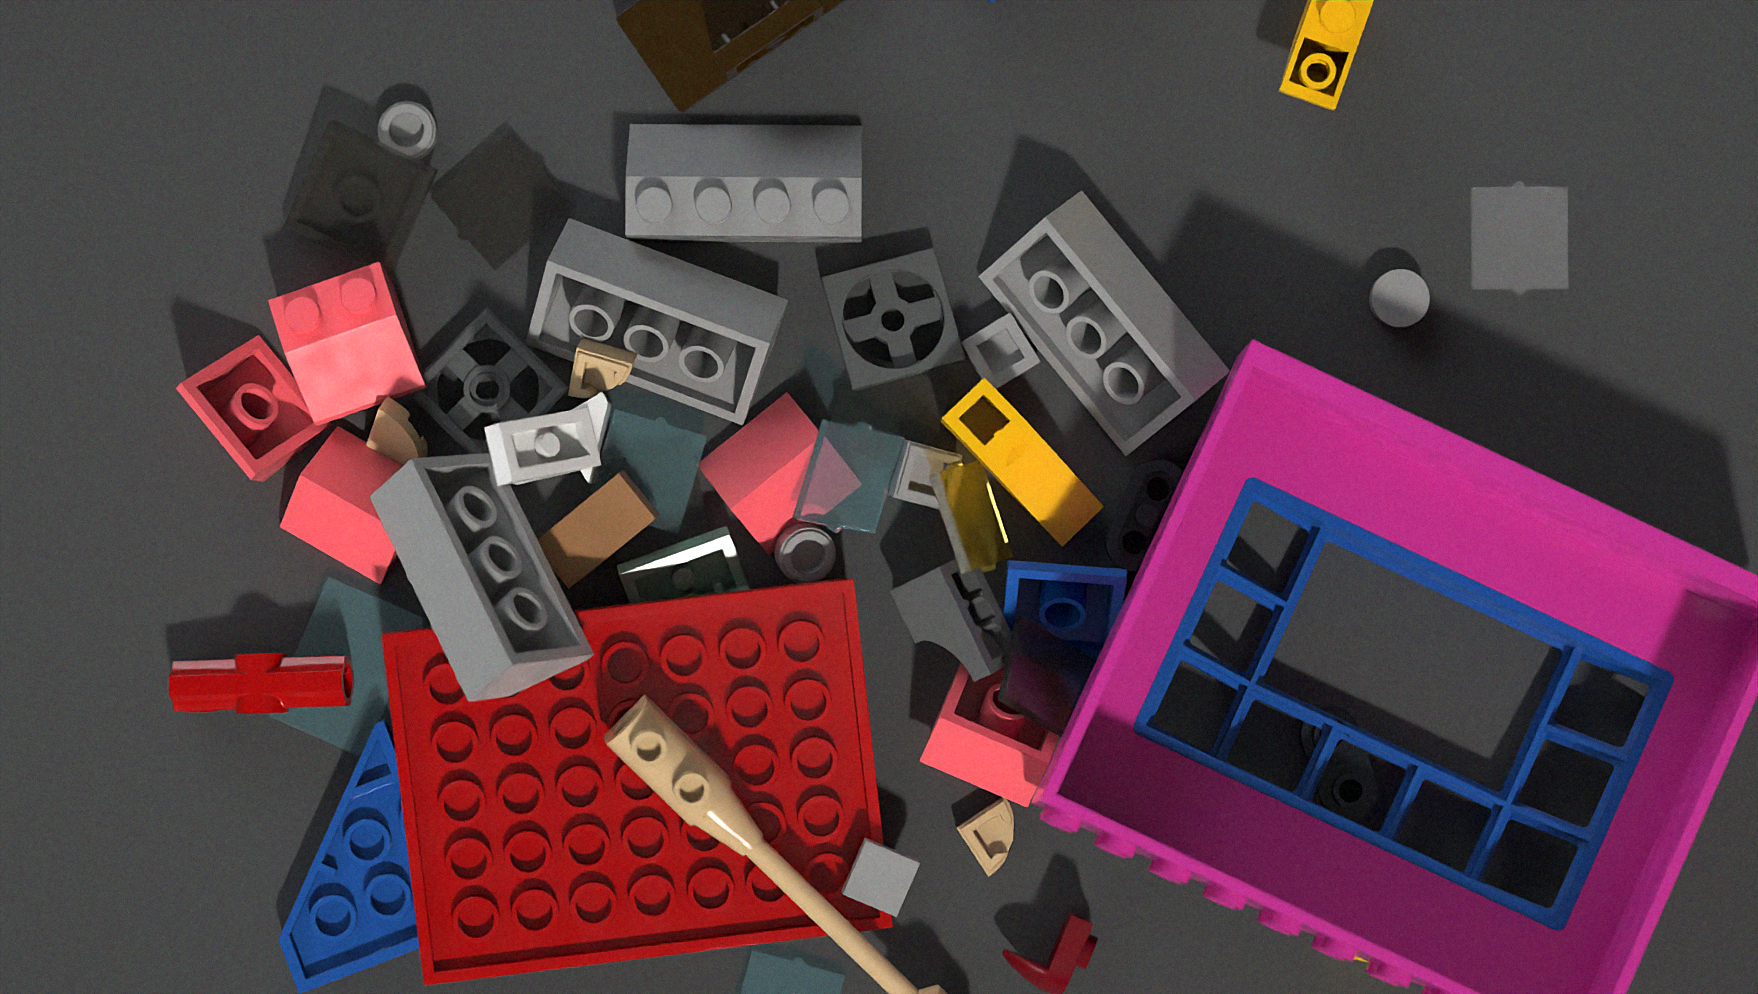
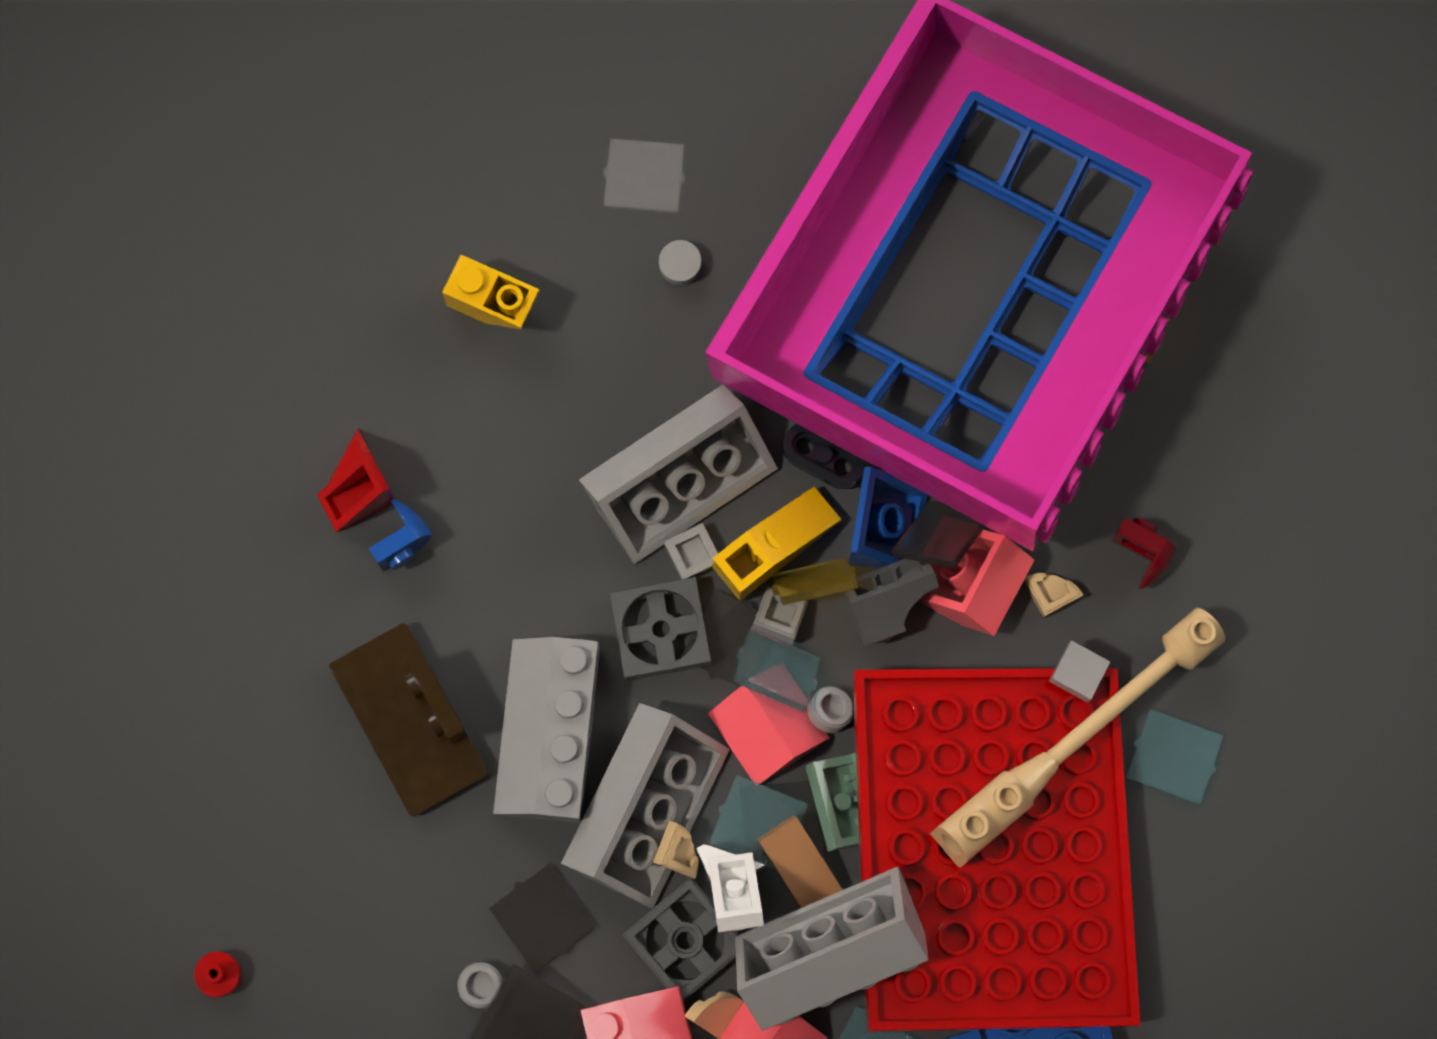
camera: 85 degrees left, 10 degrees down
(1344, 764) = (1018, 329): black plate -> none

